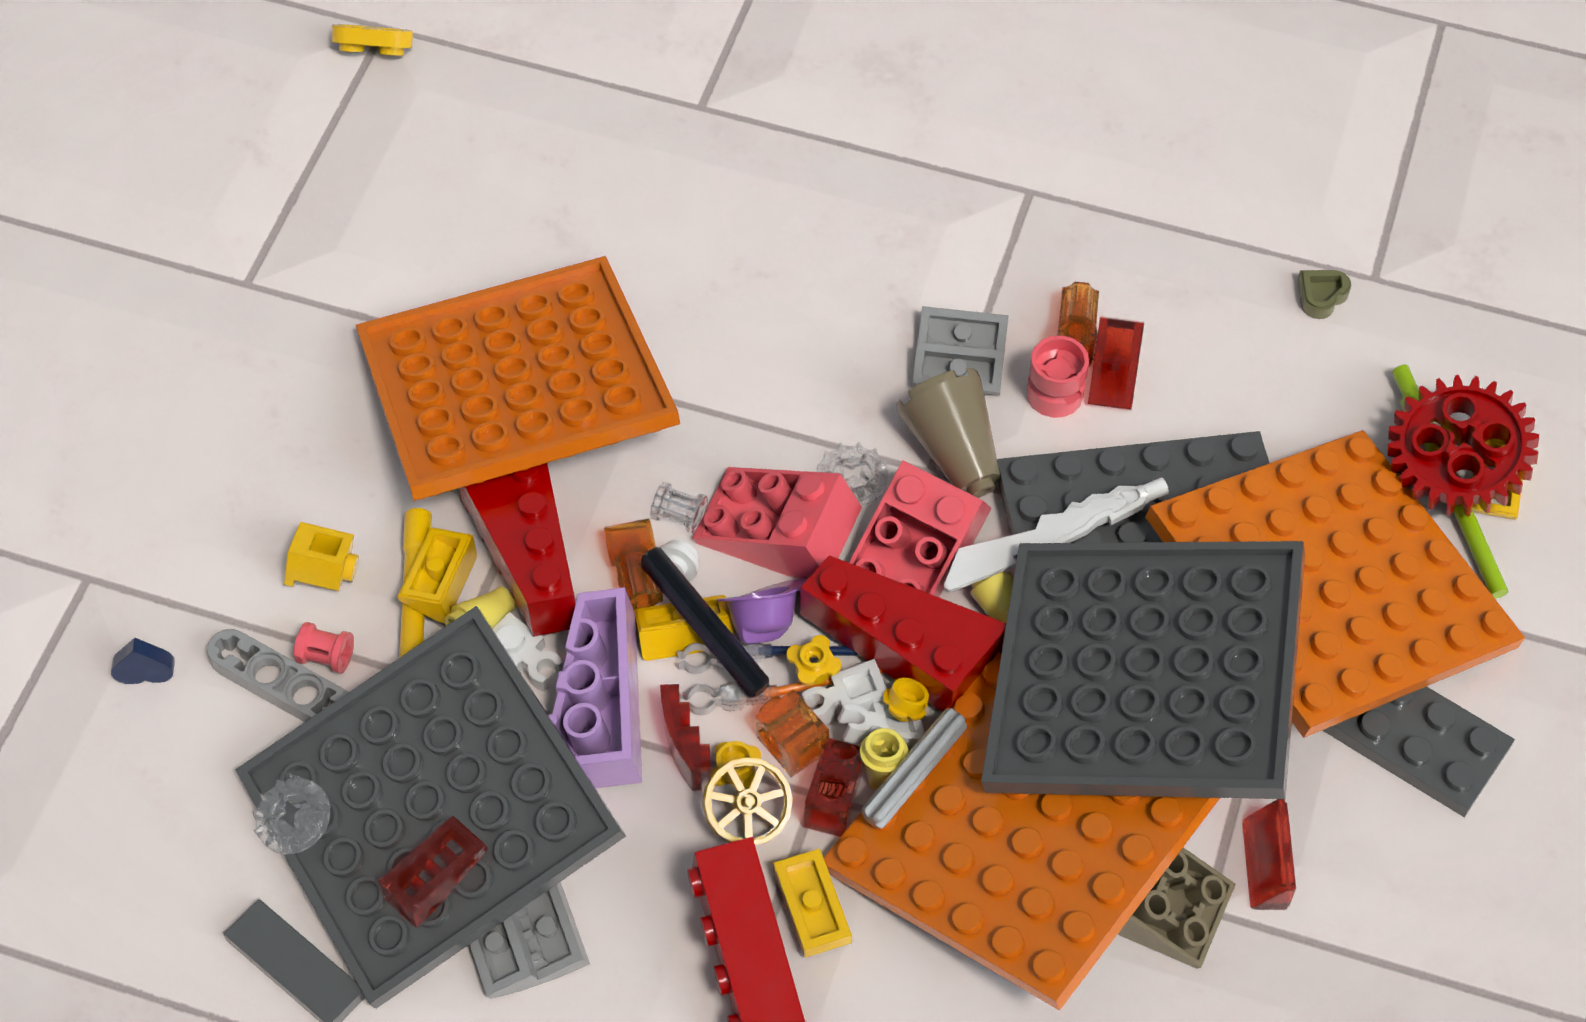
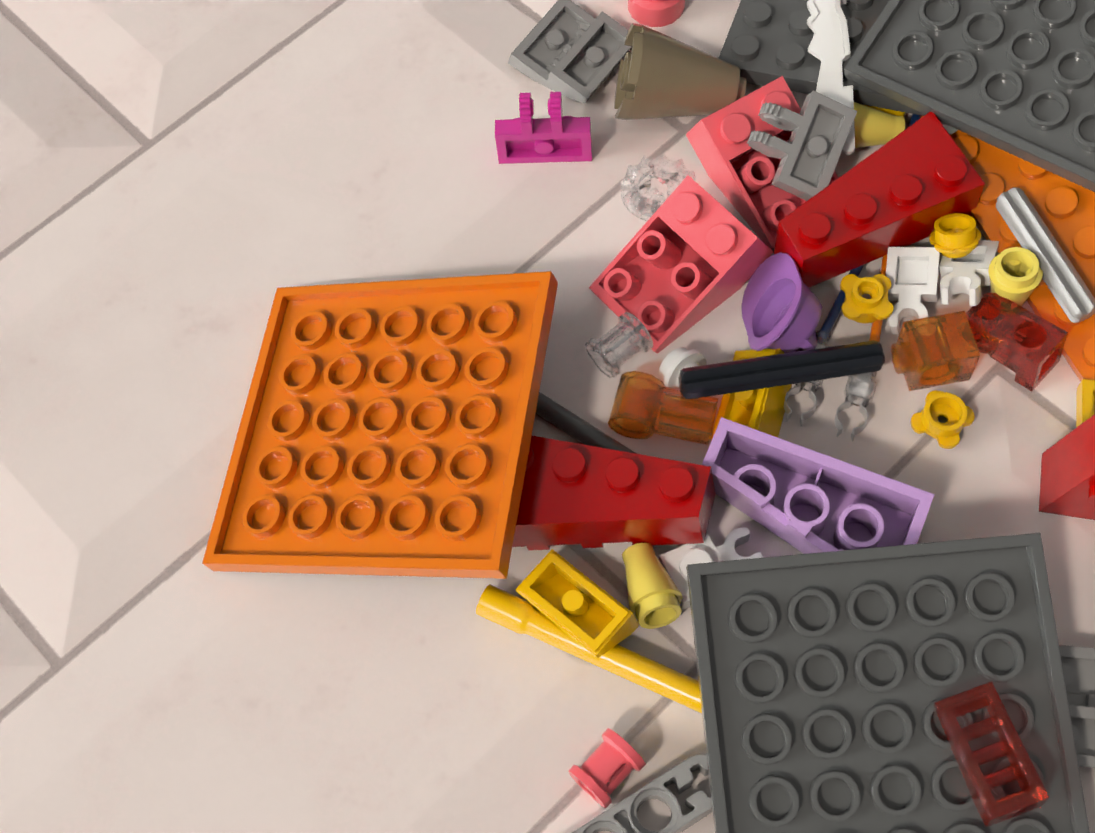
camera: 55 degrees left, 5 degrees up
(320, 557) = (489, 723): yellow brick -> none
(592, 527) = (575, 426): none -> dark grey bar
(683, 739) = (917, 453): clear red slope -> none
(747, 800) = (1021, 412): wheel -> none
(846, 363) = (543, 139): none -> dark pink hinge
(924, 553) = (812, 147): none -> light grey hinge

